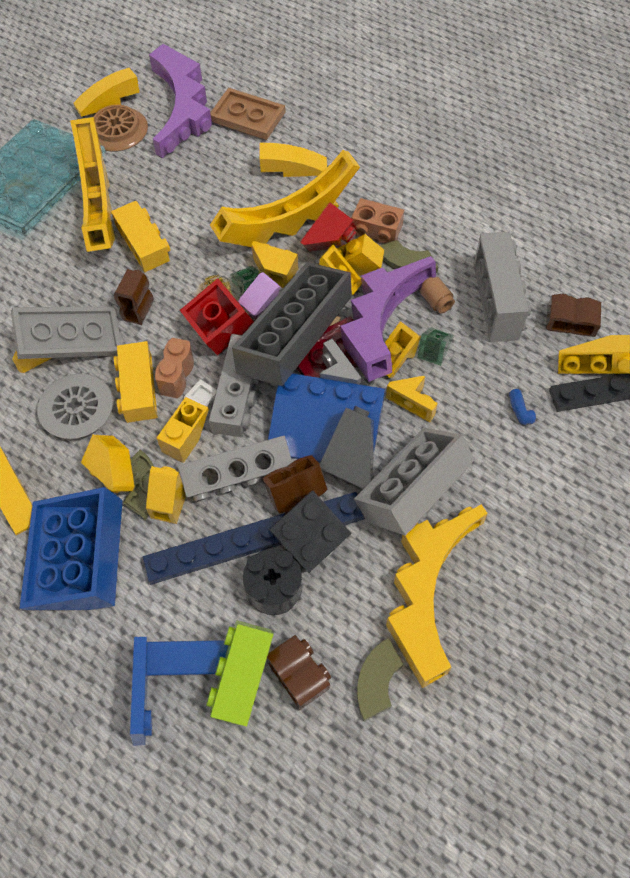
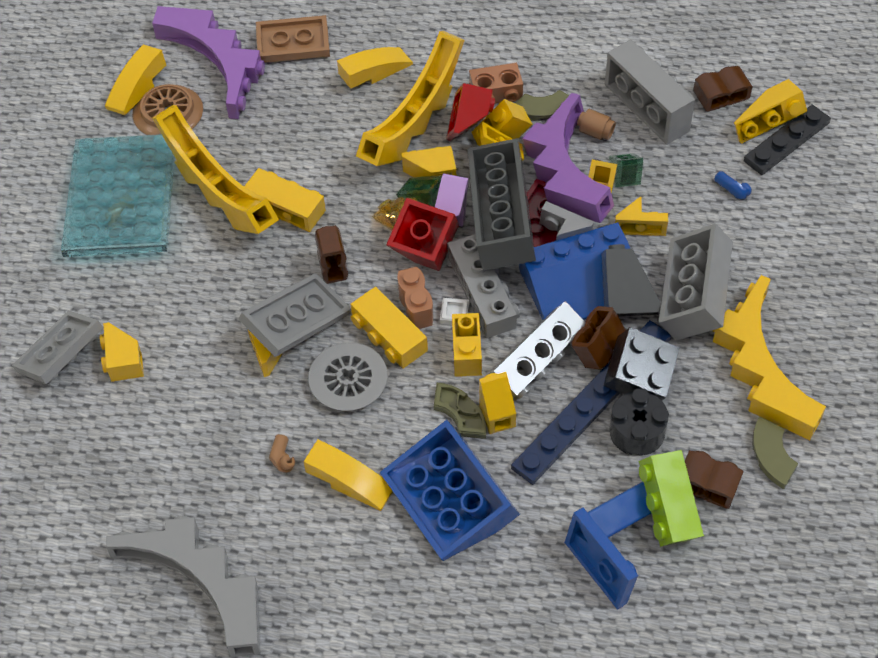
camera: 30 degrees left, 5 degrees down
(109, 462) = (424, 402): yellow slope -> none

